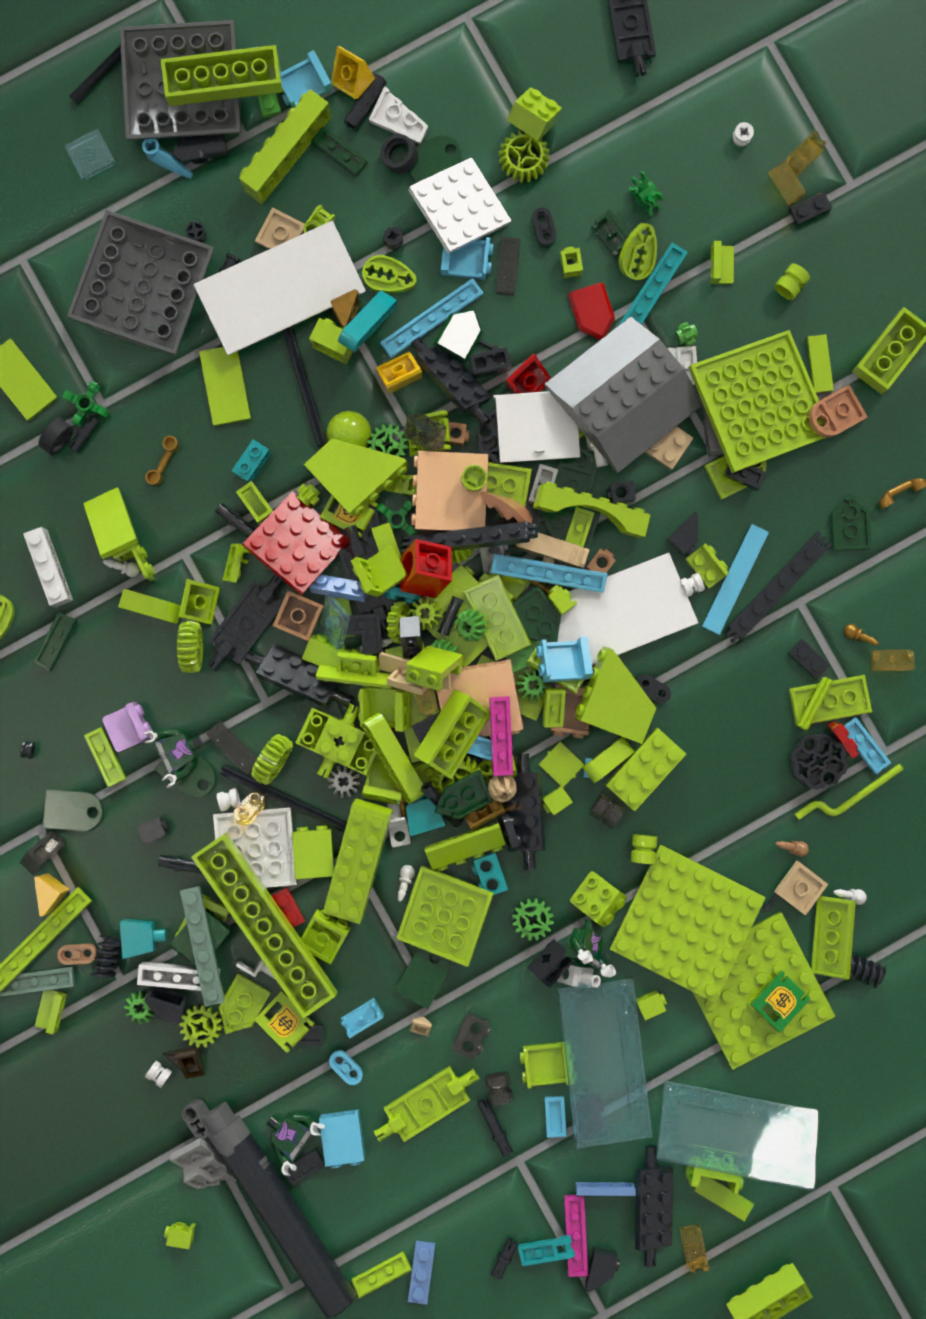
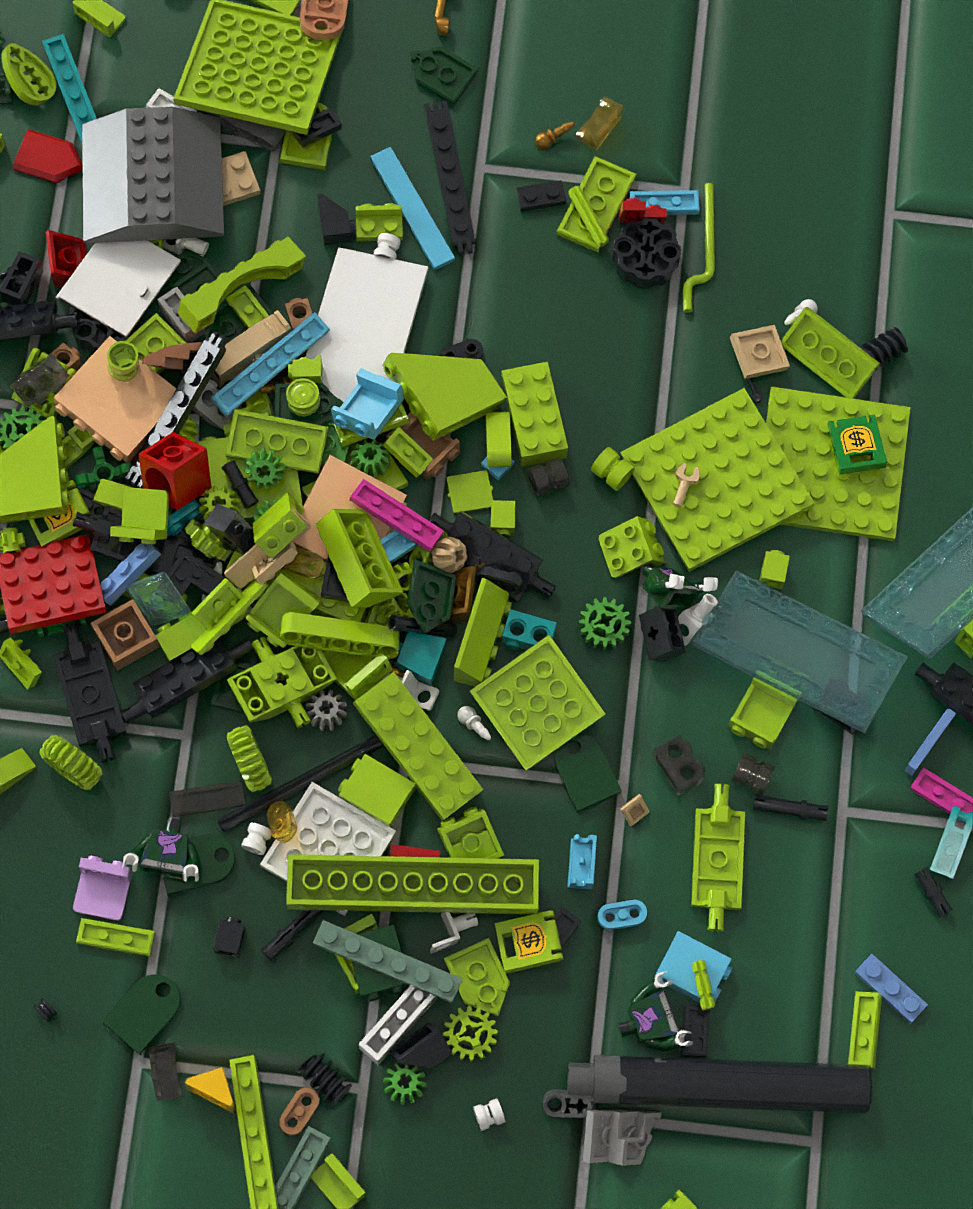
camera: 55 degrees left, 15 degrees down
(139, 937) = (330, 1031): teal torso -> none
(187, 1060) = (497, 1076): dark brown slope -> none
(199, 602) = (30, 724): lime slope -> none
(332, 1156) = (703, 985): none -> lime axle
(539, 613) = (303, 397): none -> lime wheel
(555, 1116) = (822, 742): medium azure tile -> none
(628, 488) = (245, 241): black brick -> none
(665, 906) = (685, 482): none -> tan bar
(686, 334) = (140, 88): bright green gear -> none
(799, 848) = (715, 332): medium nougat bar -> none

